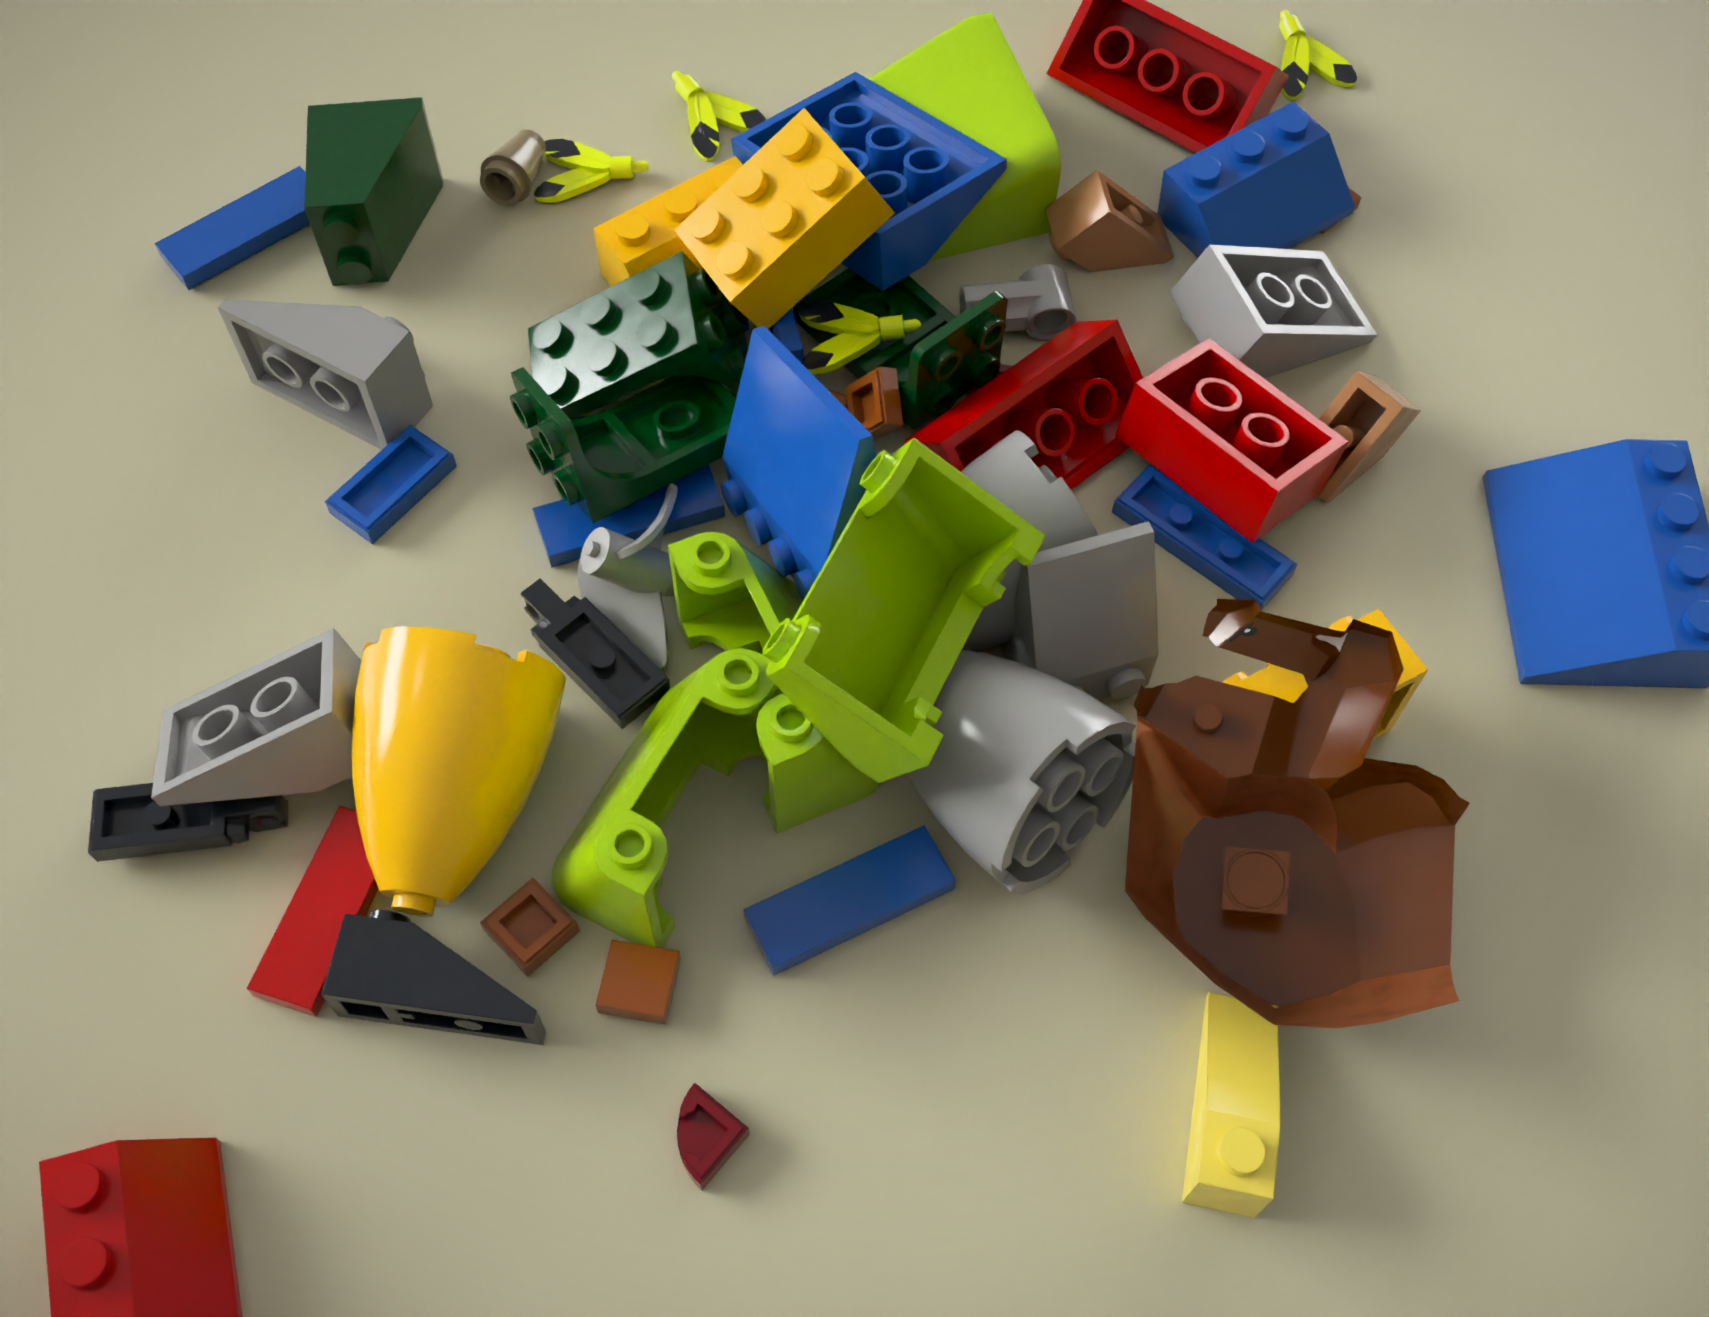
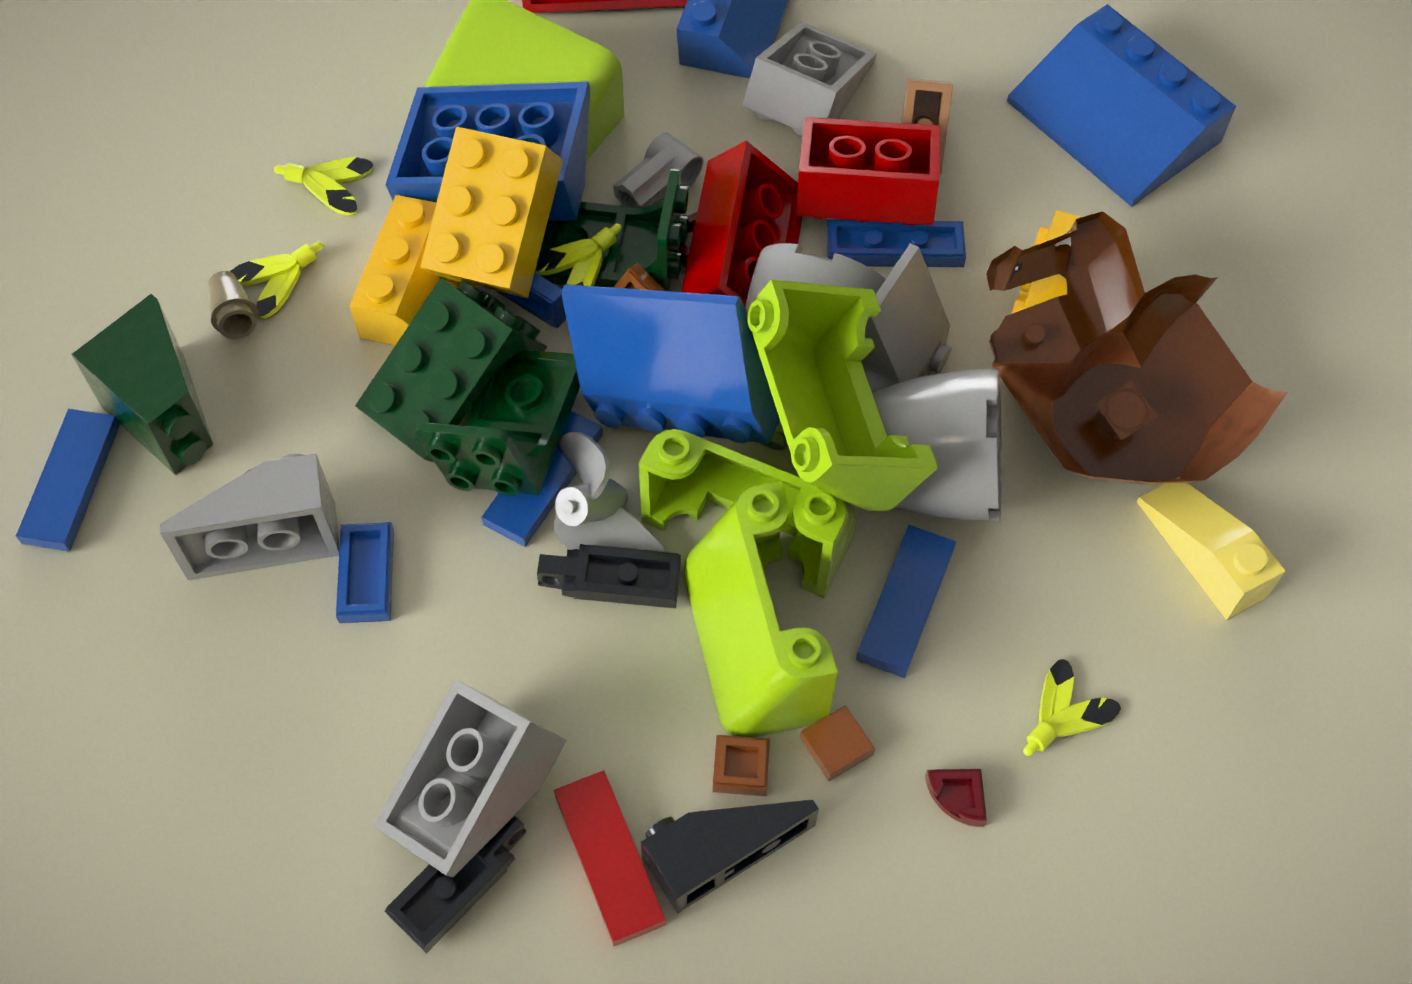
camera: 40 degrees left, 0 degrees up
(444, 757) = (609, 702): yellow cylinder -> none
(888, 1150) = (1059, 718): none -> neon yellow piece
(1106, 227) = (664, 90): medium nougat slope -> none

